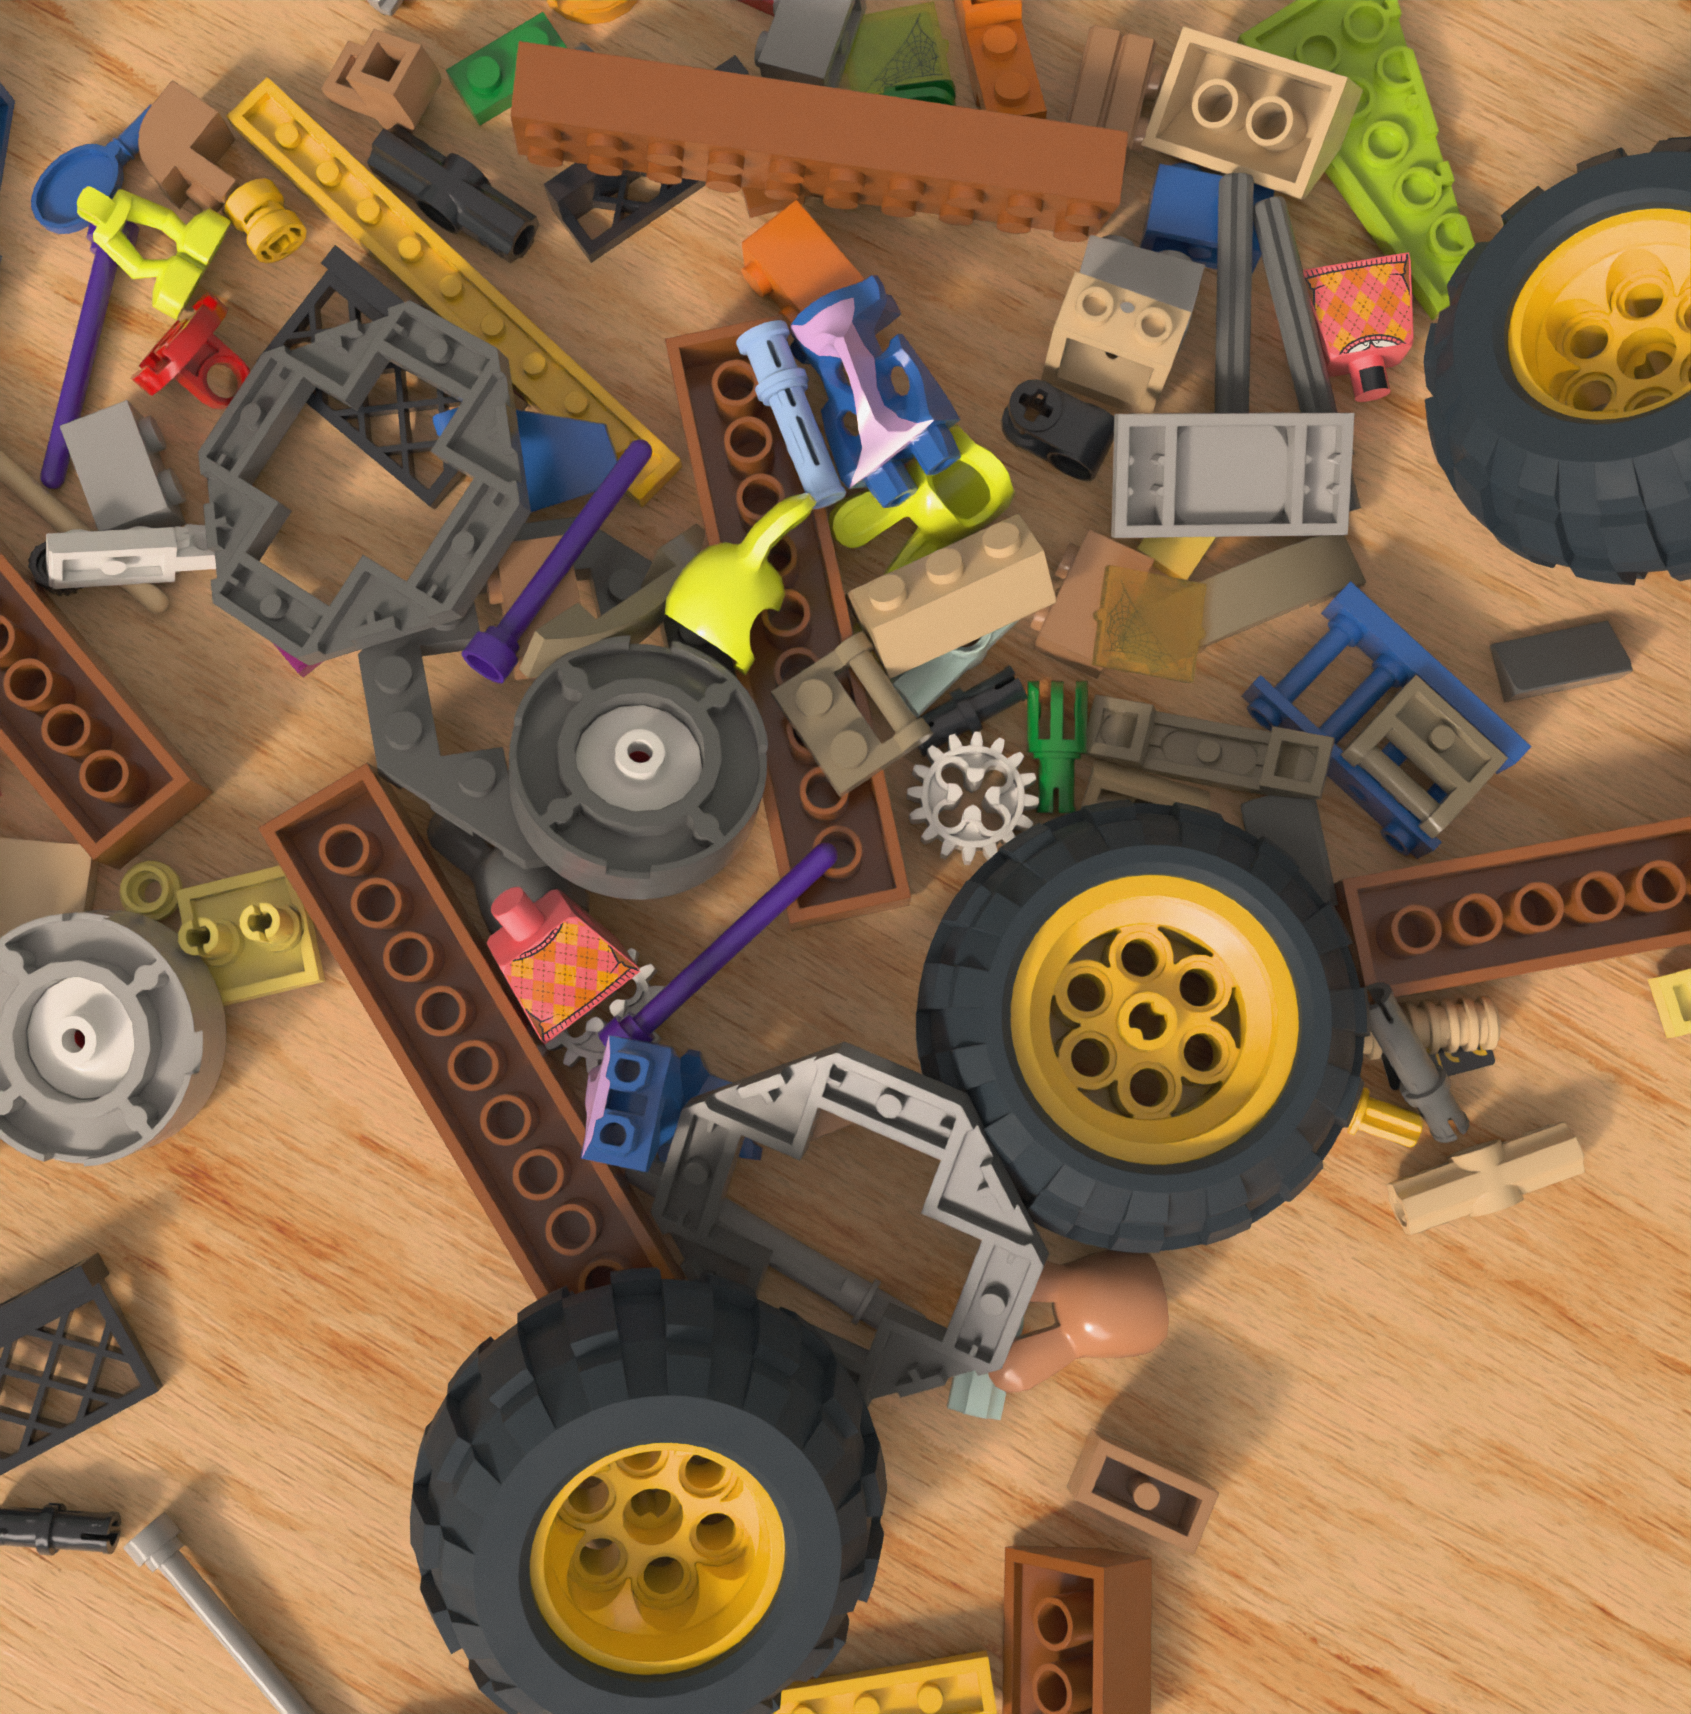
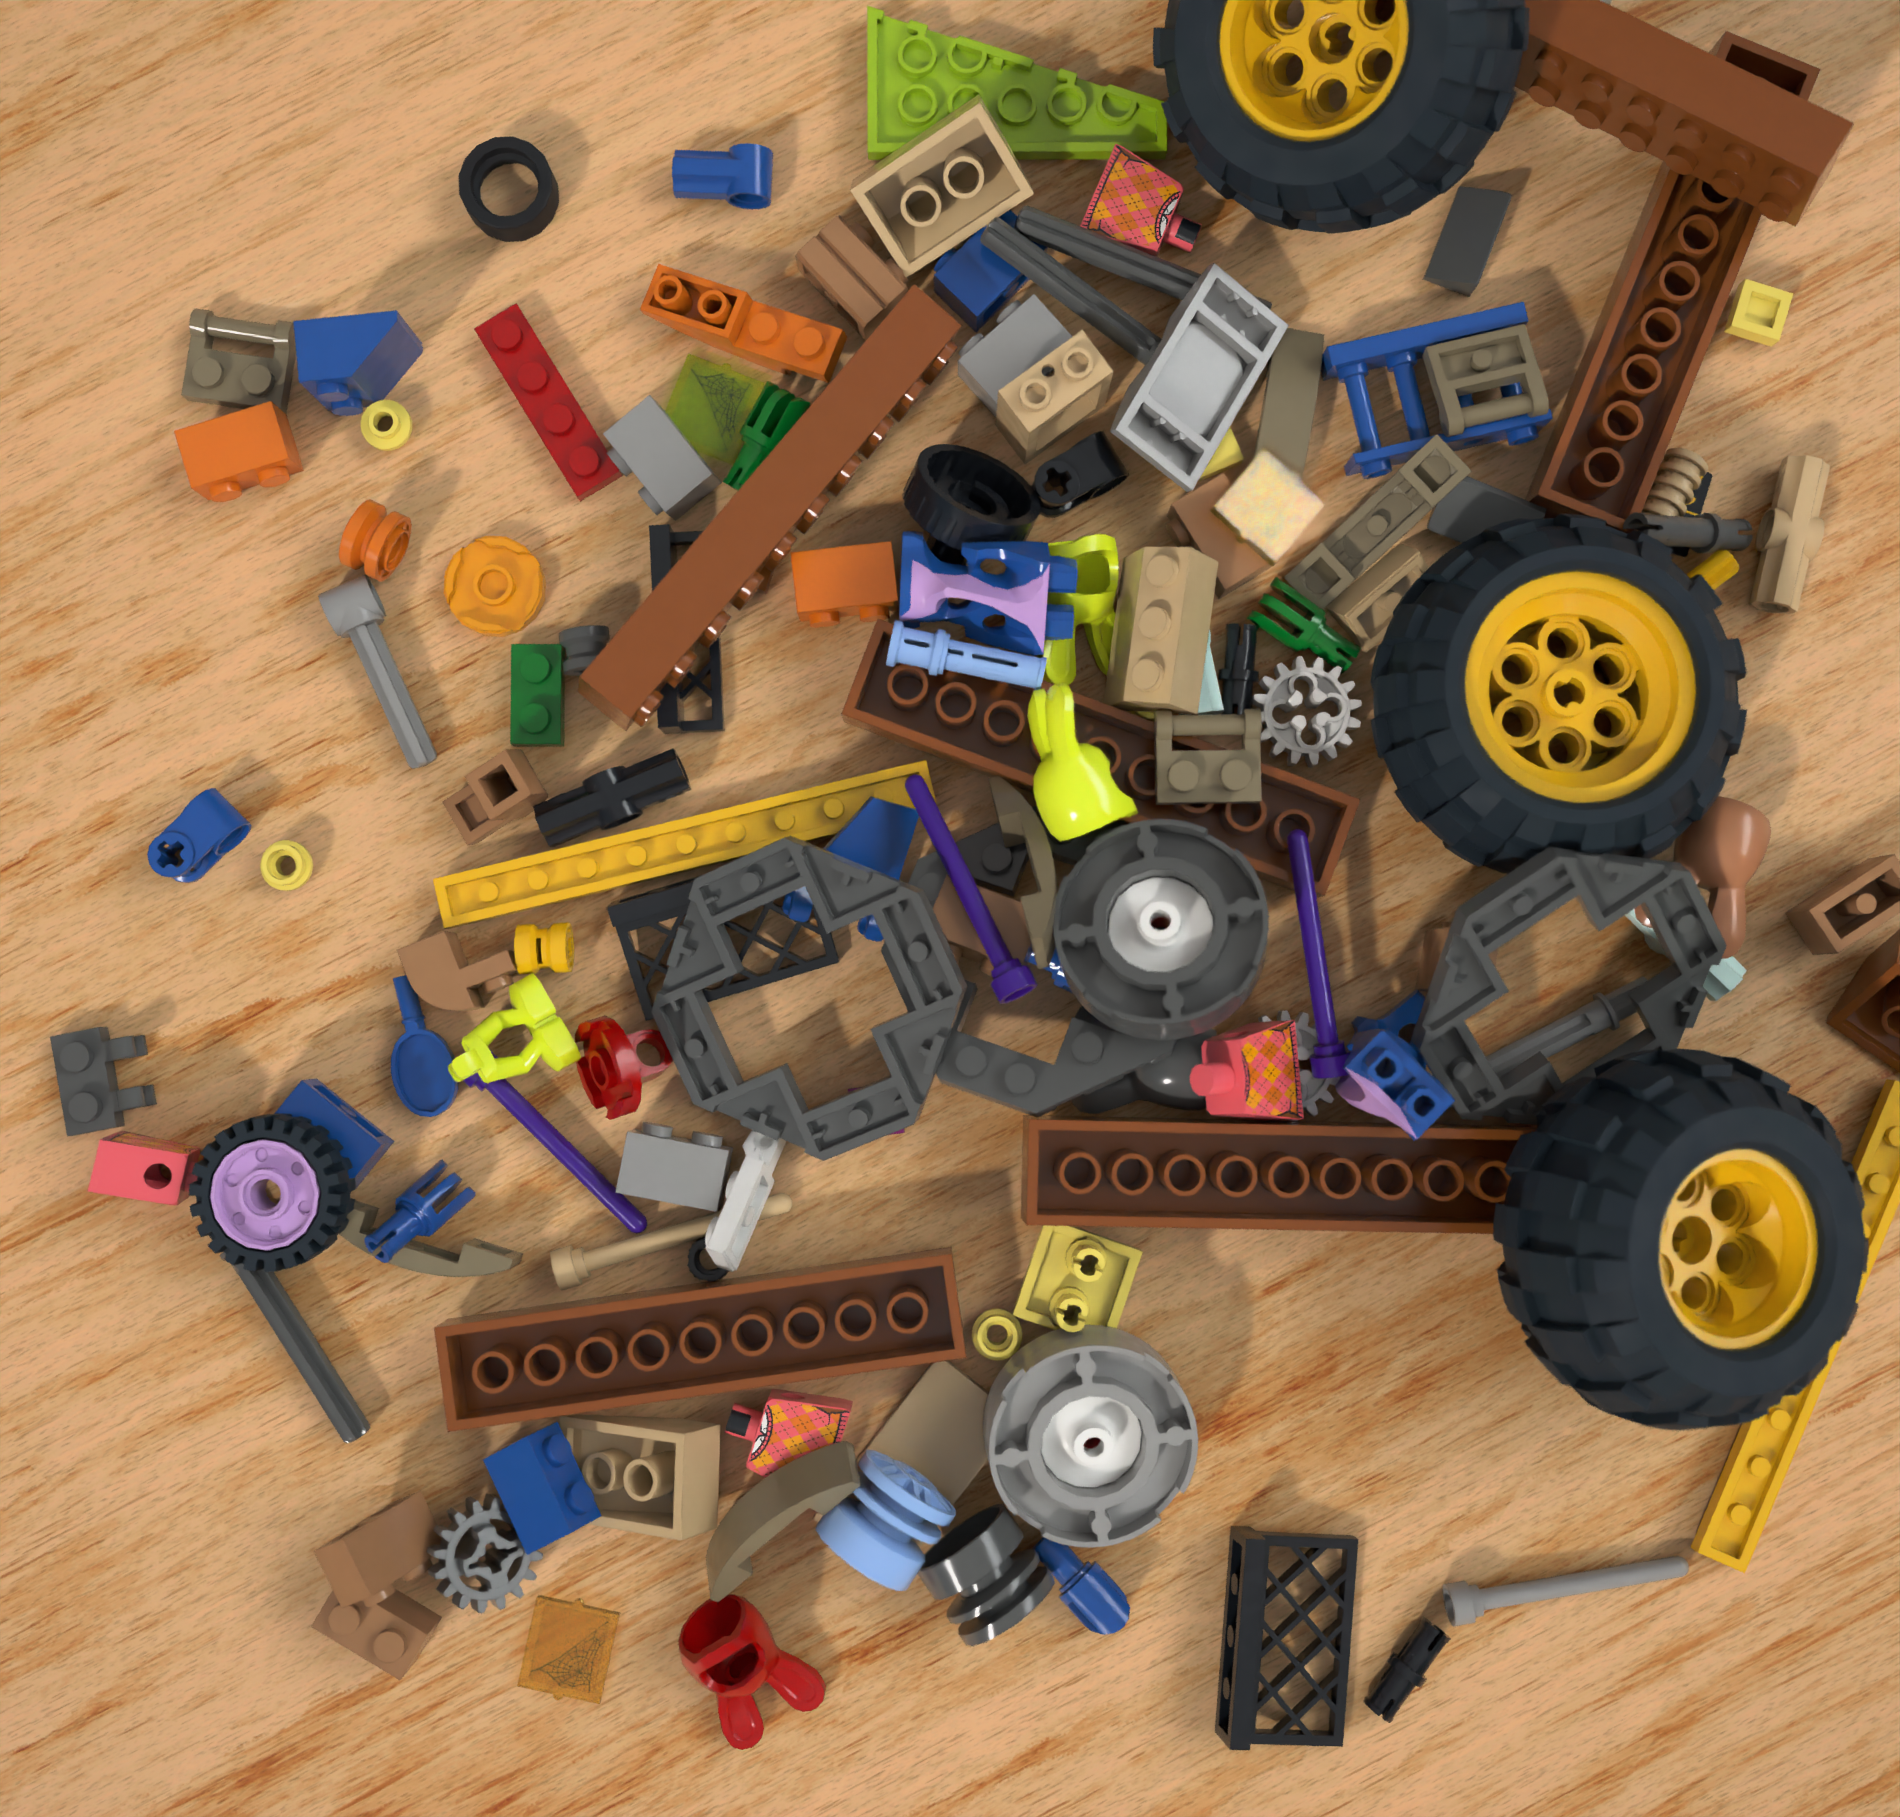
camera: 60 degrees left, 5 degrees up
(973, 344) = (967, 499): none -> black piece

